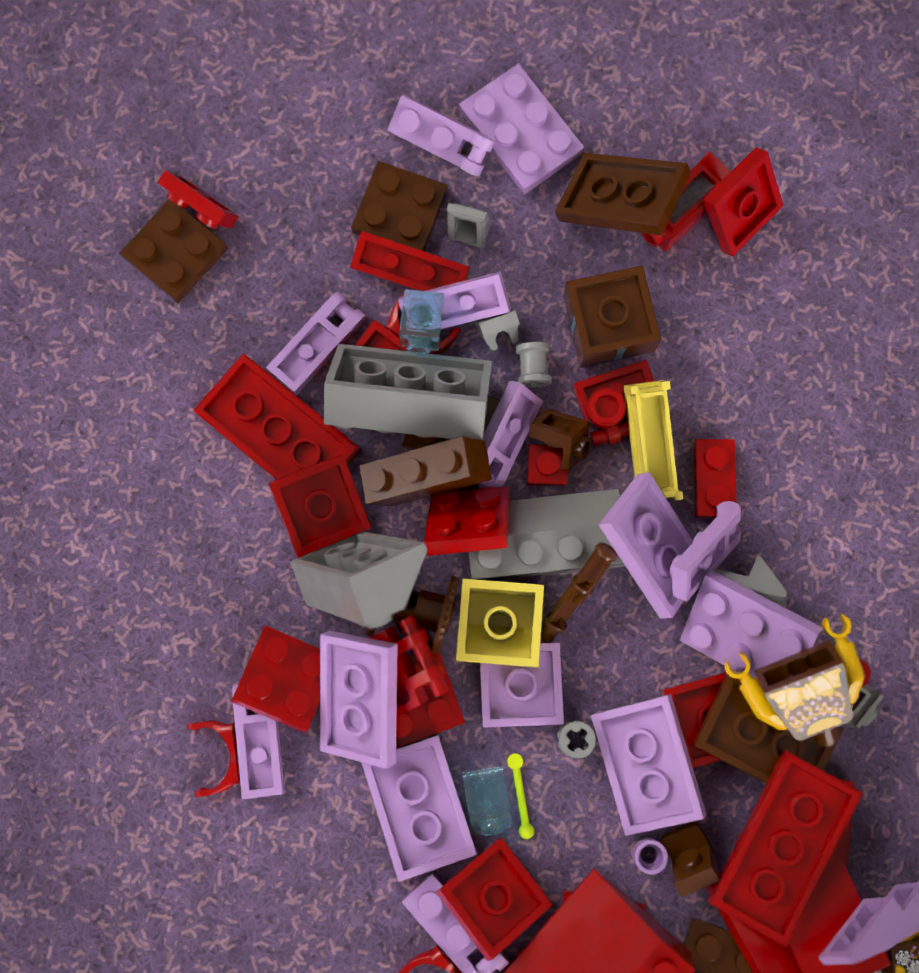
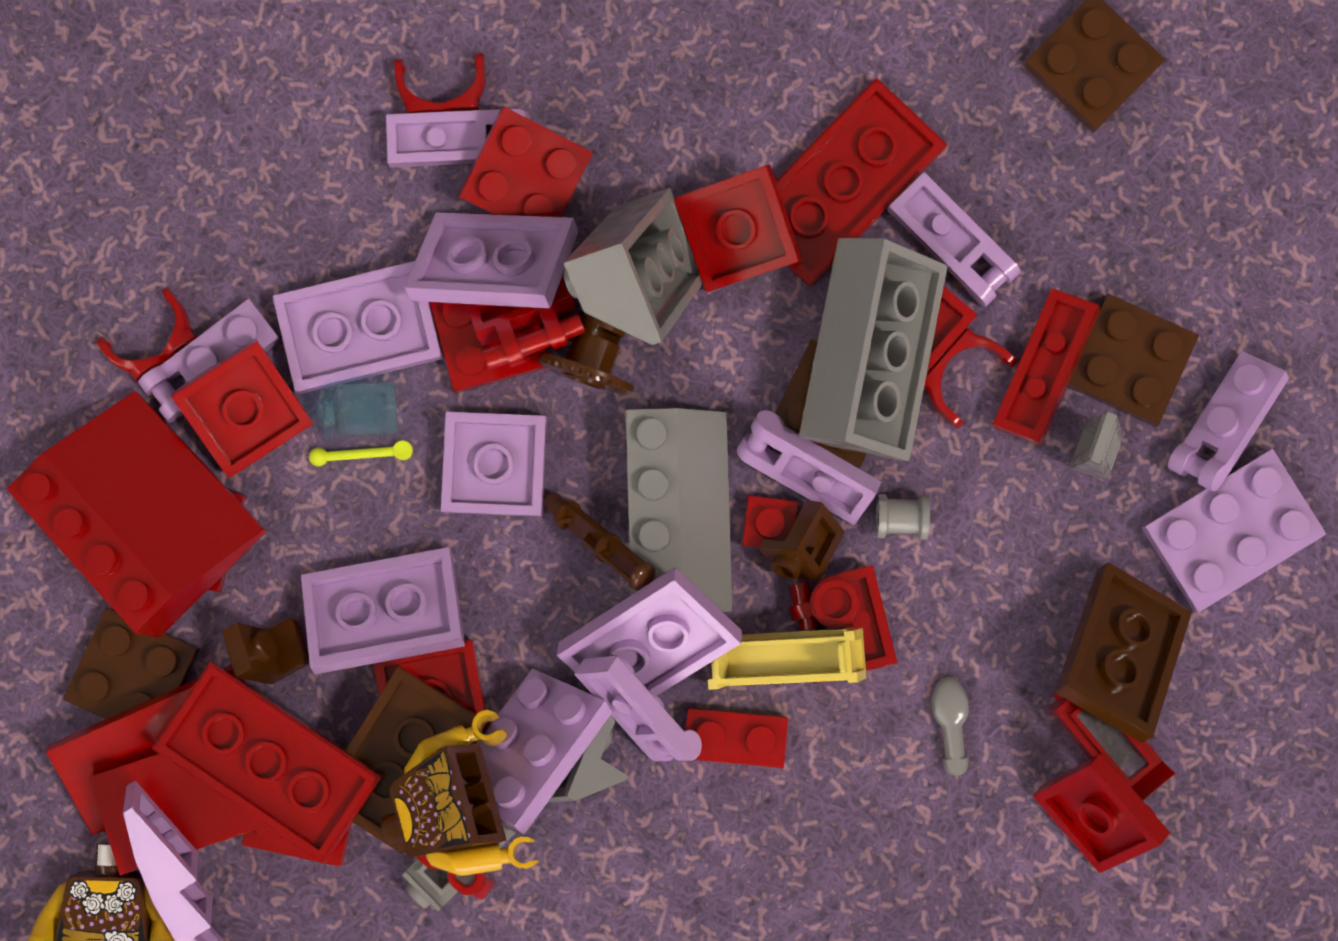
camera: 95 degrees right, 5 degrees up
(186, 193) = (1167, 84): red plate -> none
(421, 321) = (966, 371): clear light blue bracket -> none
(426, 471) = (766, 363): reddish brown brick -> none
(468, 521) = (701, 412): red plate -> none
(472, 299) = (988, 420): lavender plate -> none
(491, 326) = (964, 471): light grey tile -> none
(500, 623) = (568, 441): light yellow slope -> none
(588, 737) = (406, 526): light grey bush -> none
(611, 316) = (957, 621): reddish brown container -> none
(659, 861) = (262, 597): lavender hose -> none
(676, 320) = (951, 710): none -> light grey piece

